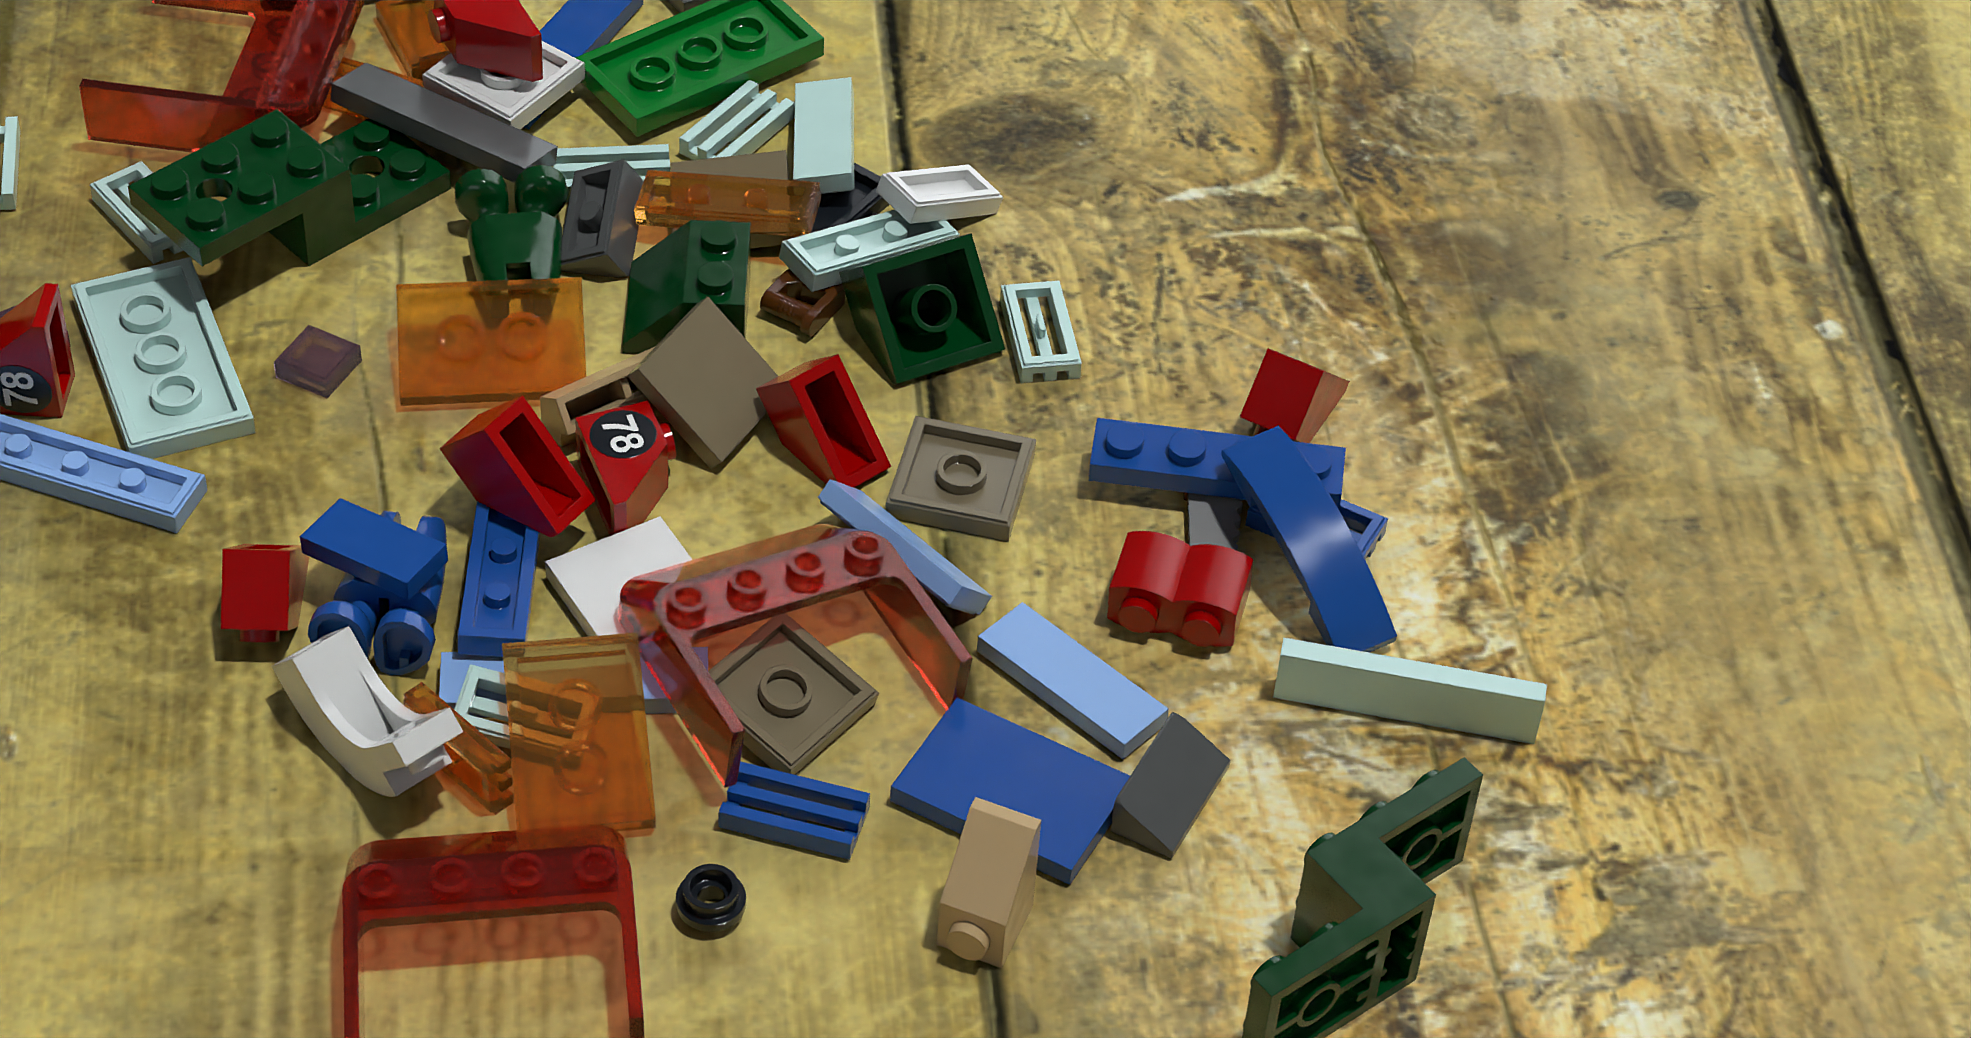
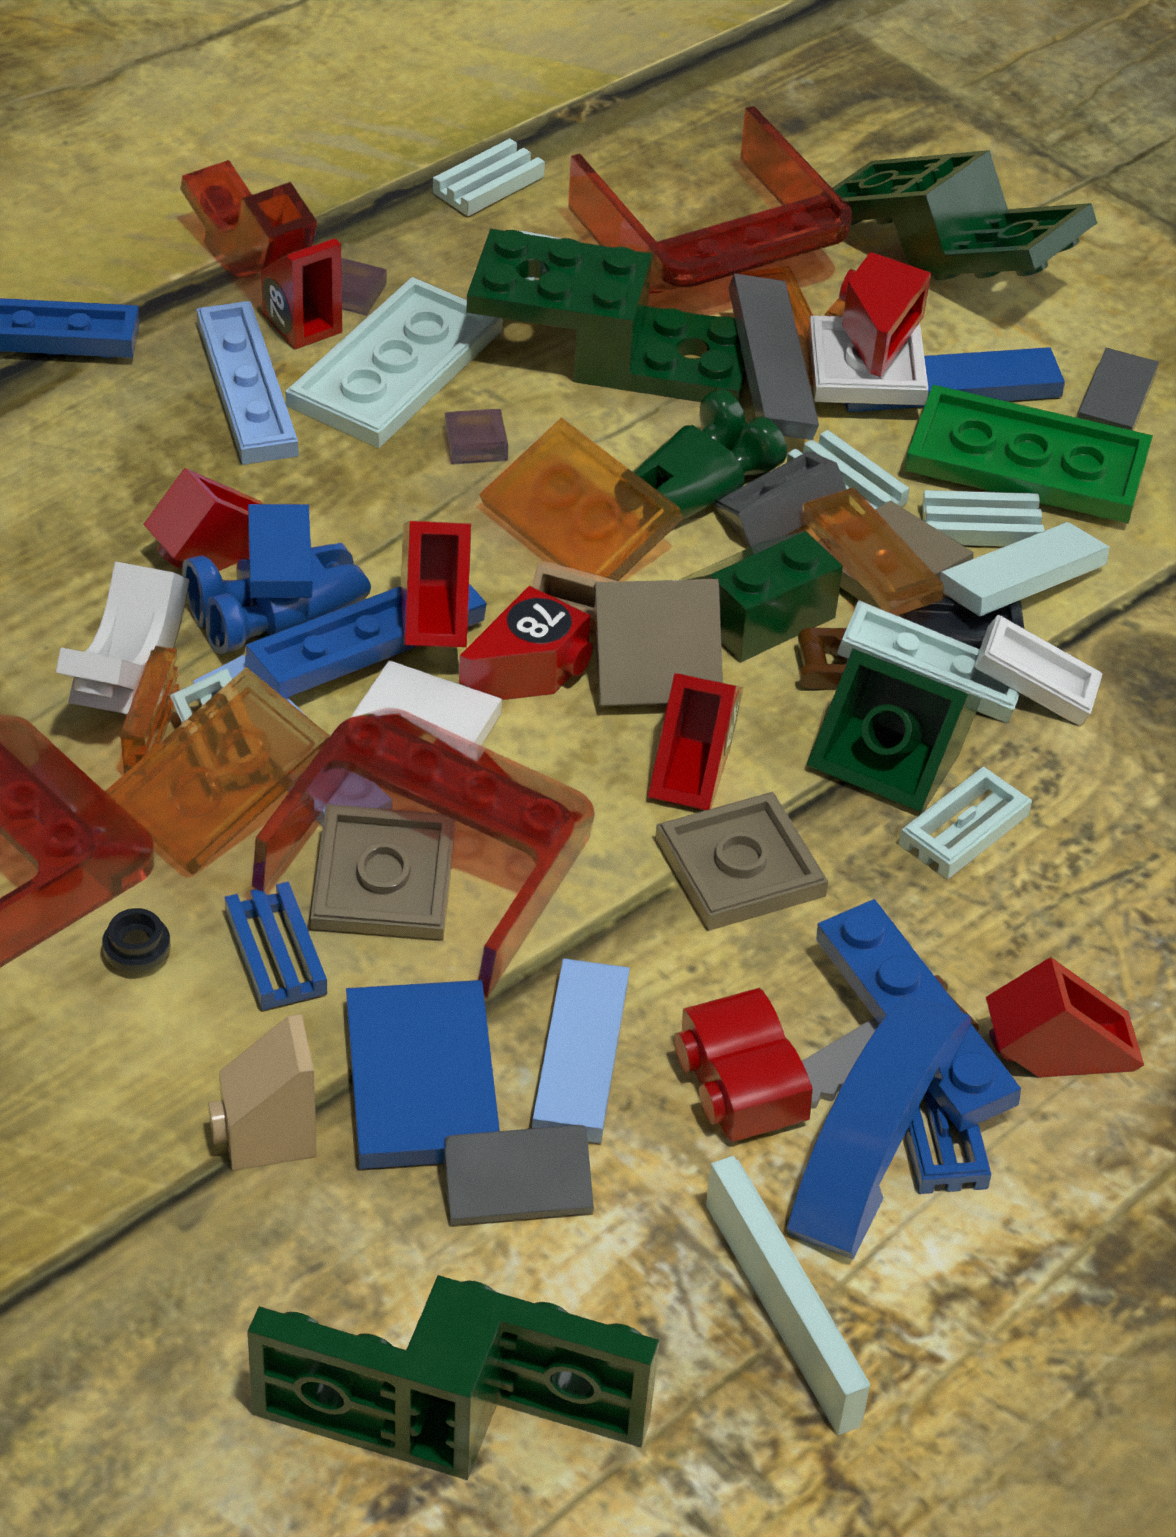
camera: 55 degrees right, 0 degrees up
(924, 562) = (611, 860): light blue tile -> none

